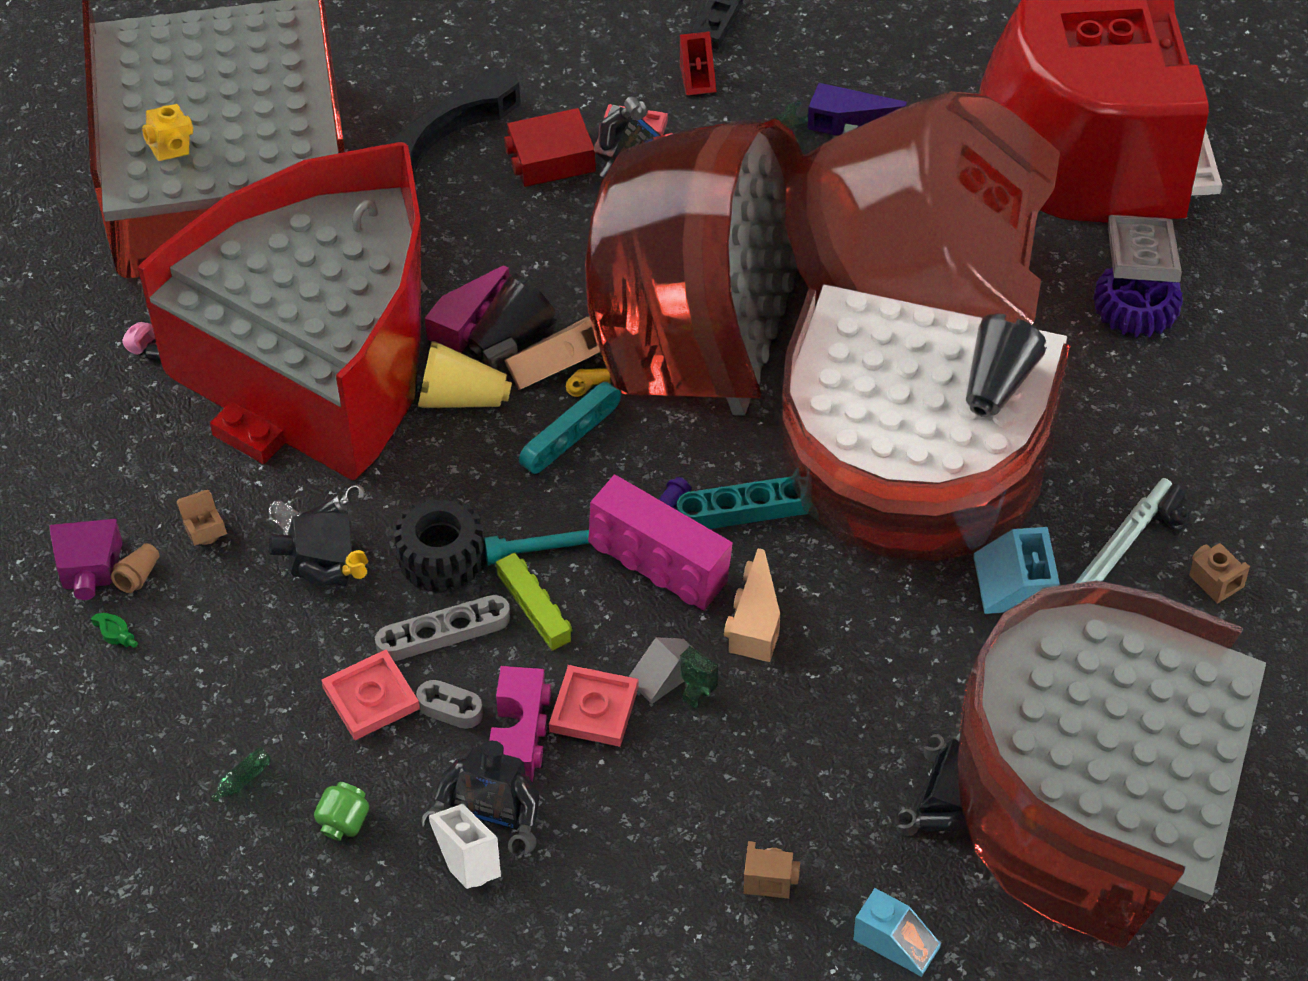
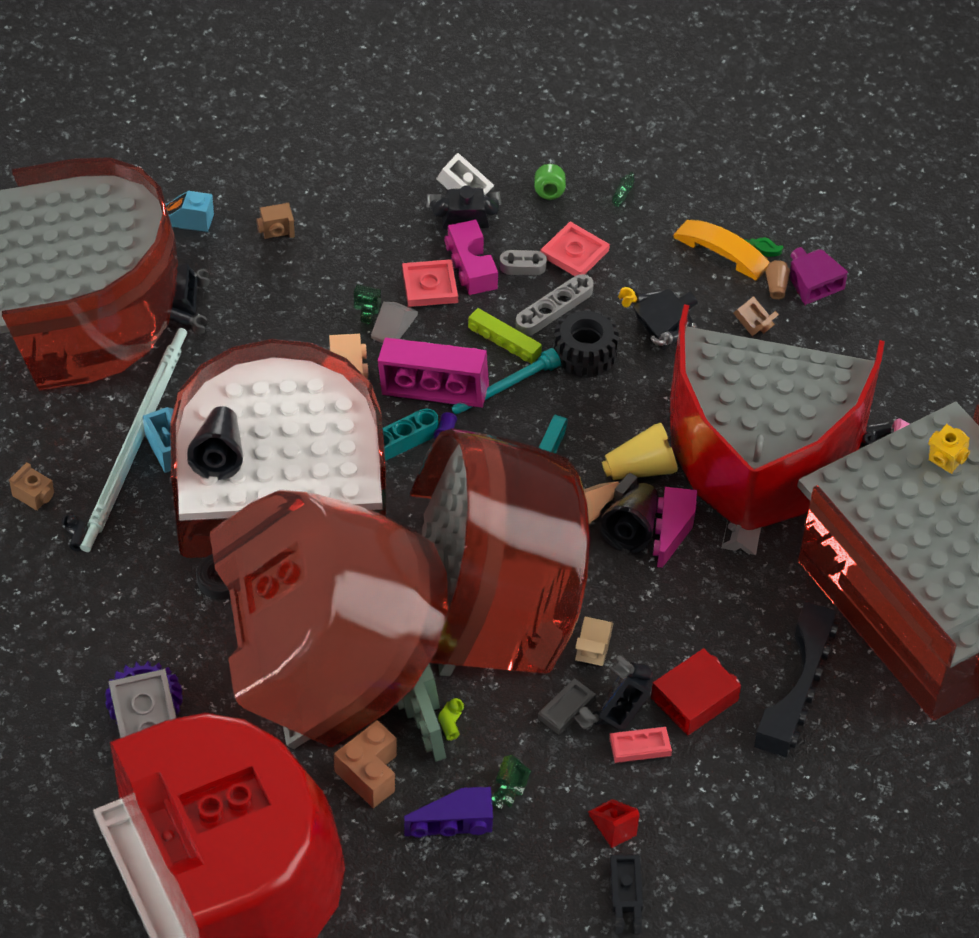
camera: 155 degrees right, 0 degrees up
(174, 646) = (747, 258): none -> light orange slope

